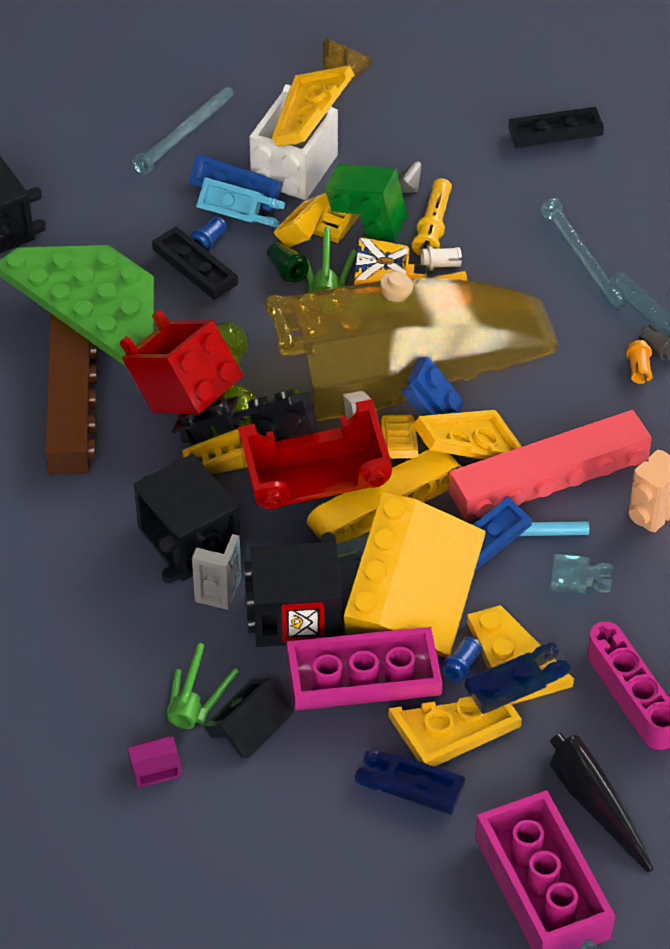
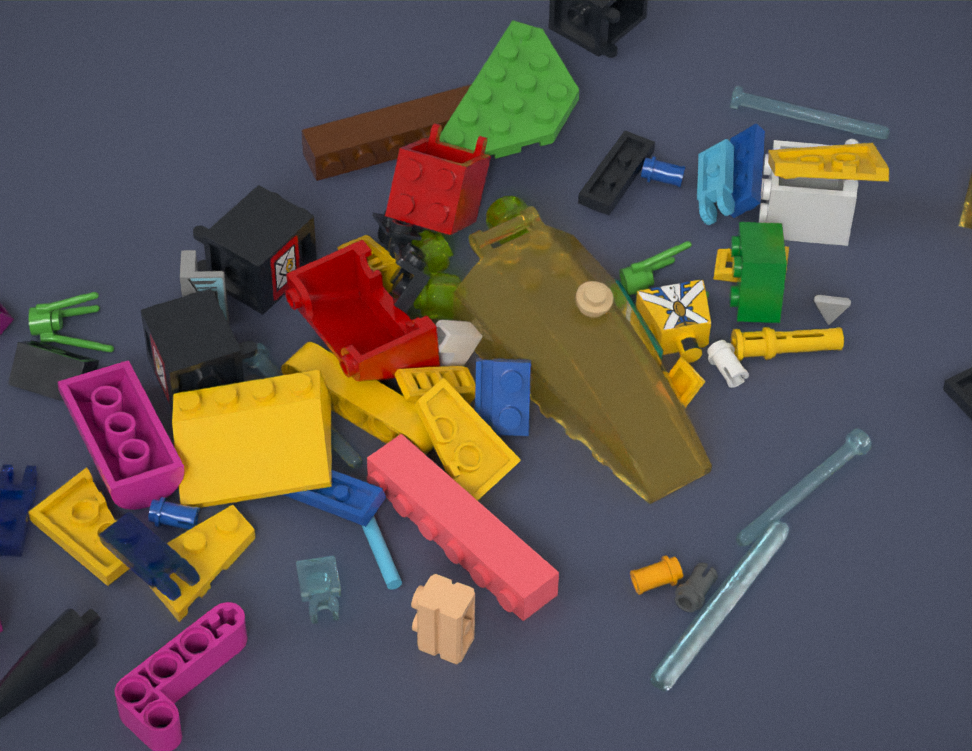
camera: 70 degrees right, 0 degrees up
(289, 263) = (653, 240): dark green cone -> none
(301, 222) = (708, 233): yellow slope -> none

